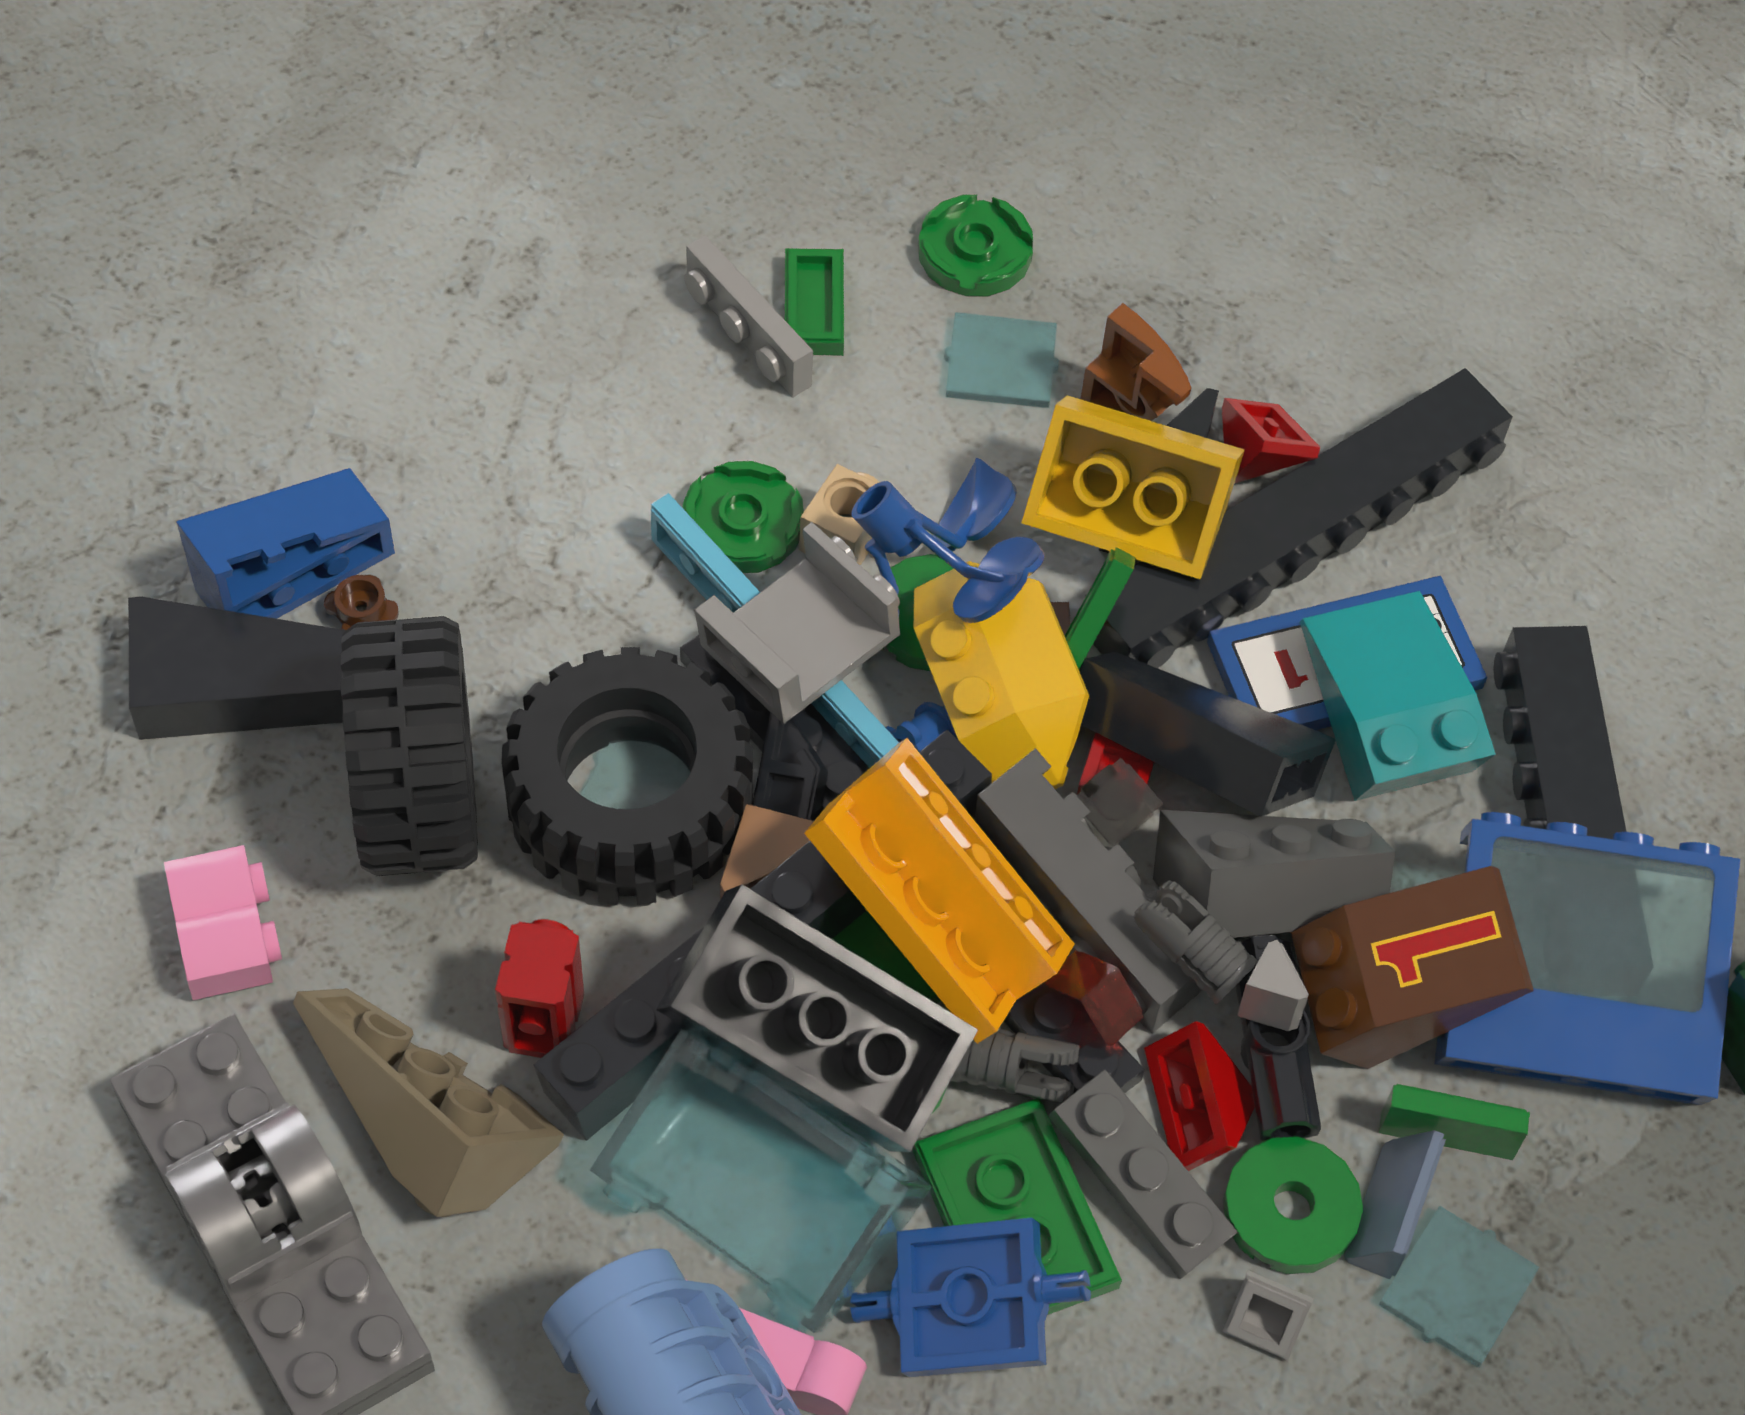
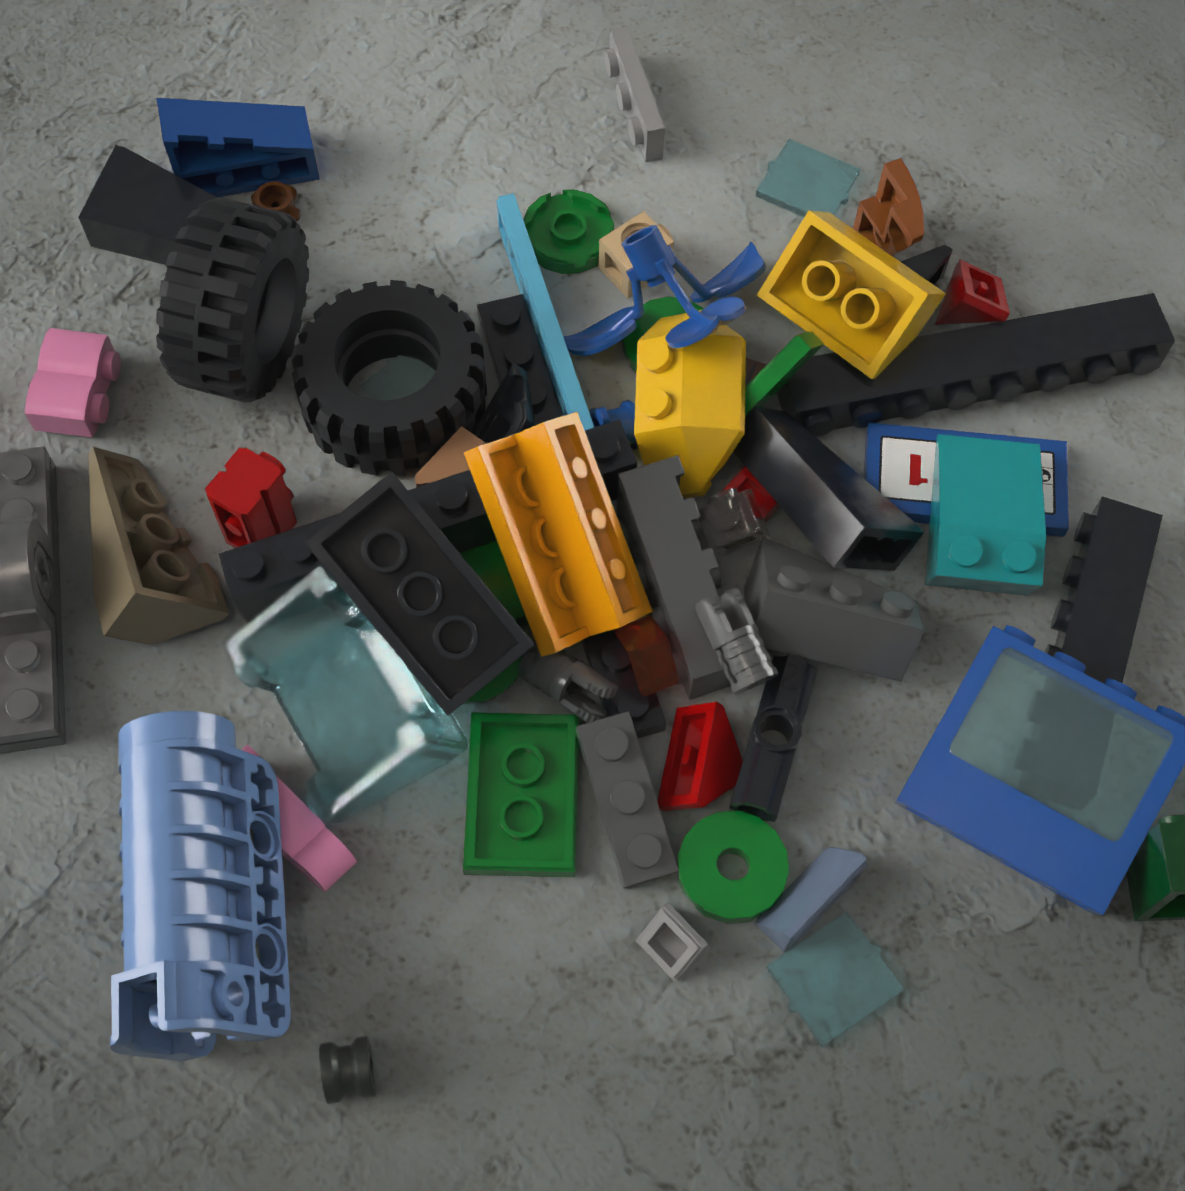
camera: 25 degrees right, 5 degrees up
(803, 627) = (558, 316): light grey panel -> none
(816, 298) = (692, 99): green tile -> none
(970, 1297) = (452, 841): blue plate -> none
(975, 262) = (826, 97): green tile -> none
(1274, 991) = (777, 698): light grey slope -> none
(1410, 965) = (897, 720): reddish brown slope -> none
(1464, 1121) = (885, 852): green tile -> none

